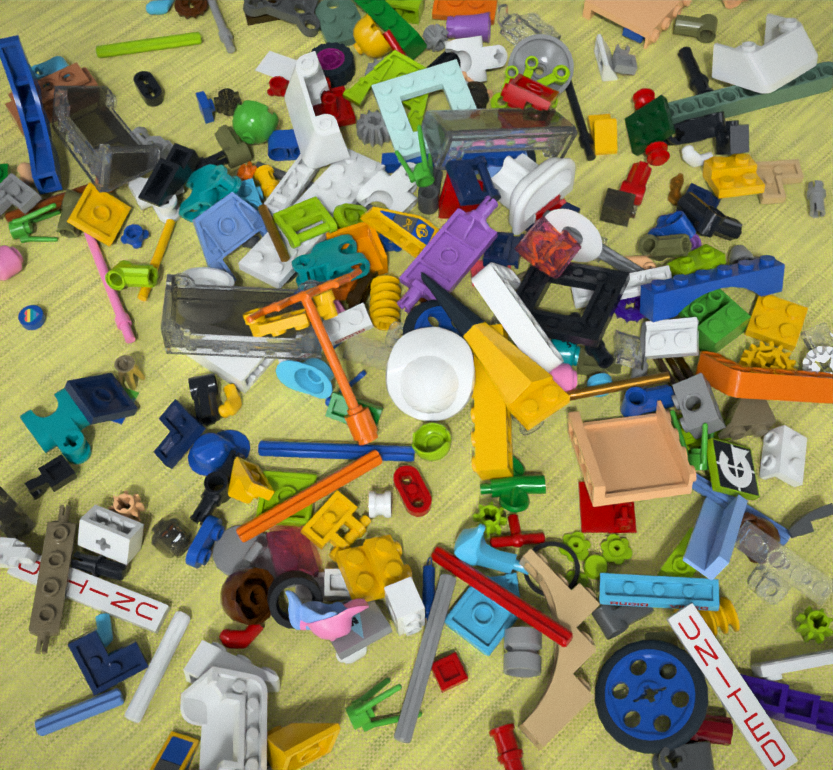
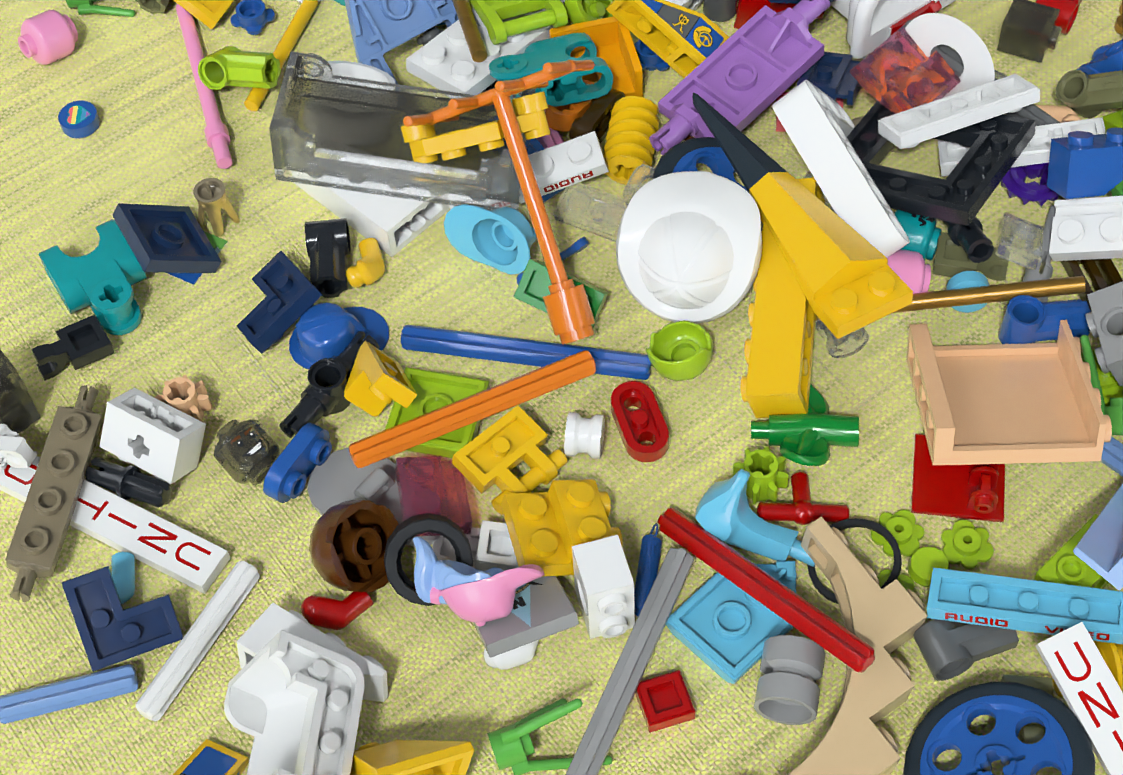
camera: 10 degrees right, 5 degrees down
(583, 270) = (958, 111): none -> white plate

